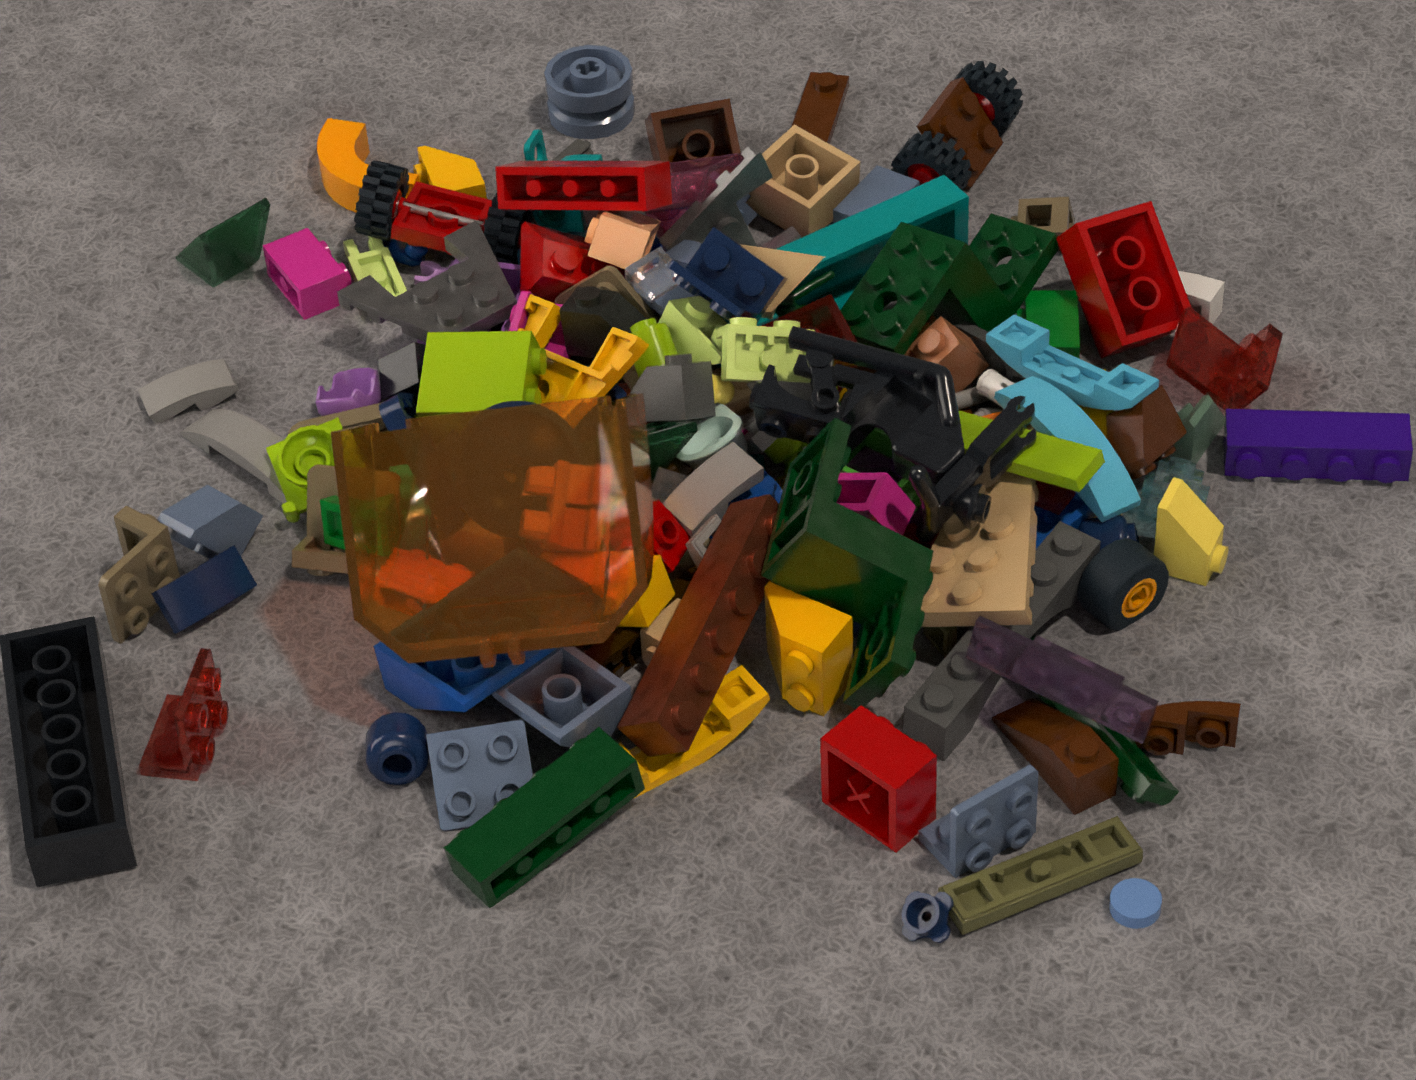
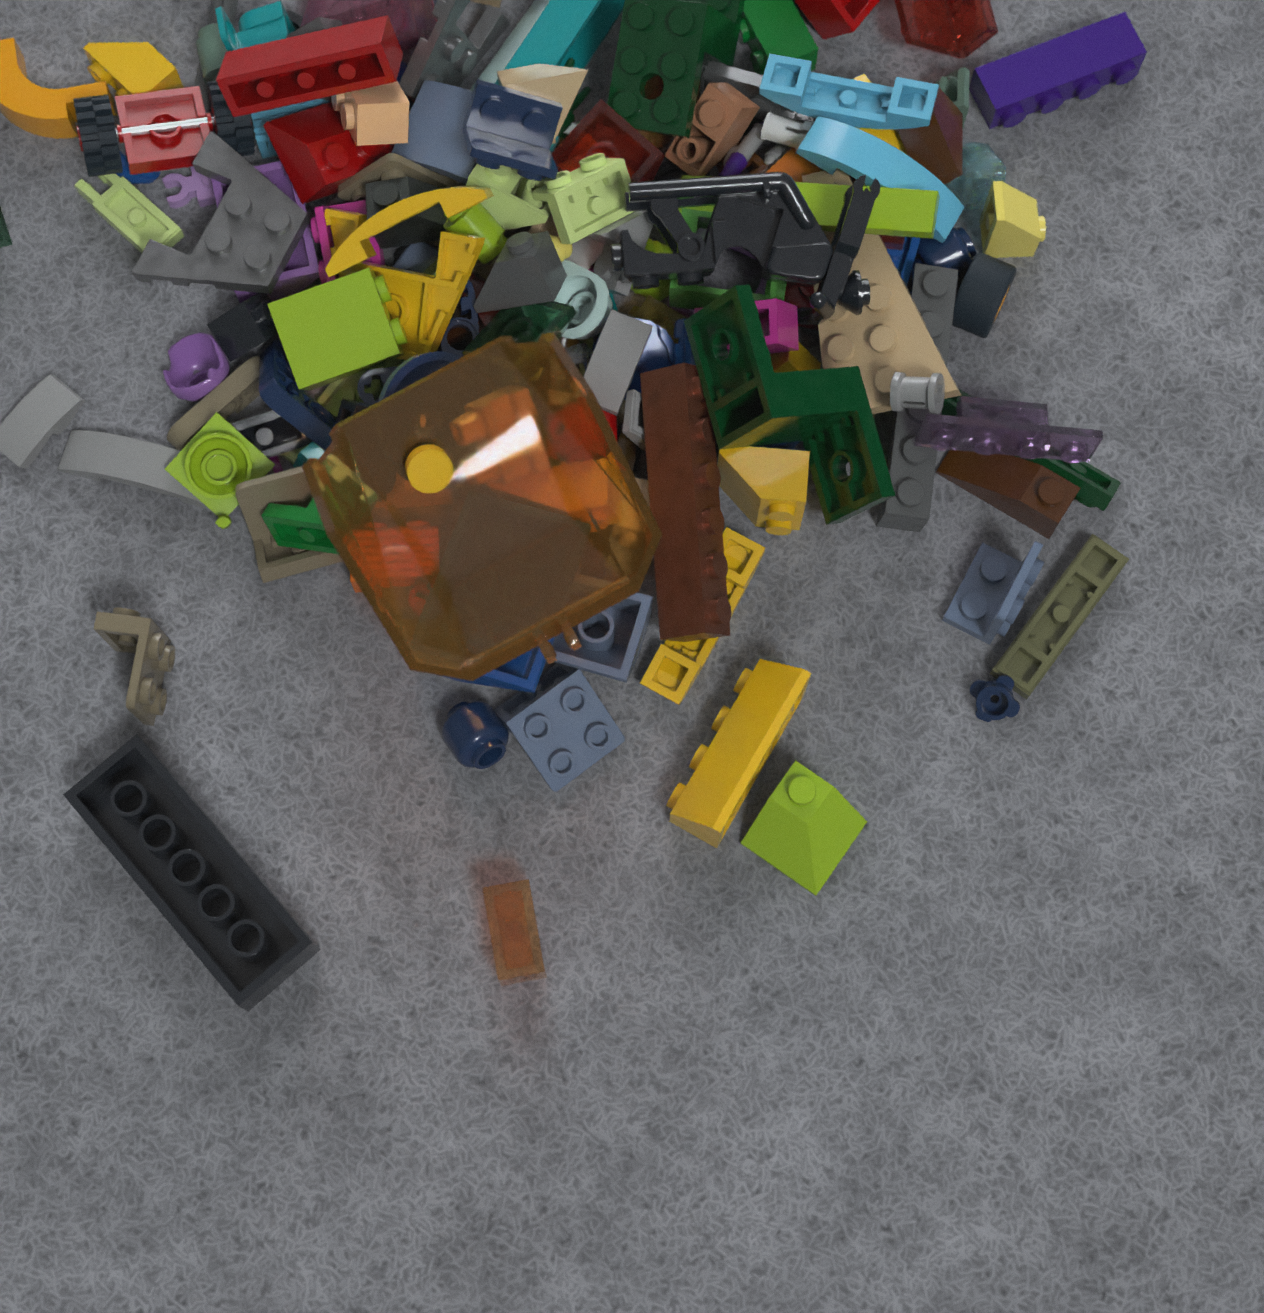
camera: 30 degrees left, 30 degrees up
(187, 725) = (275, 800): clear red bracket -> none
(204, 589) = (200, 650): dark blue slope -> none
(210, 522) = (168, 575): sand blue slope -> none
(306, 272) = (64, 238): dark pink brick -> none
(319, 913) = (514, 932): none -> clear orange brick
(479, 486) = (429, 468): none -> yellow tile
(544, 817) = (646, 751): dark green brick -> none
(587, 302) = (357, 245): none -> yellow slope
(638, 856) = (738, 750): none -> yellow slope
(651, 275) = (432, 144): clear slope -> none
(660, 943) = (804, 828): none -> lime slope
(878, 778) = (901, 590): red brick -> none
(982, 596) = (917, 392): none -> light grey bush
(1135, 903) = (1142, 607): medium blue tile -> none
(1203, 722) = (1117, 408): reddish brown slope -> none

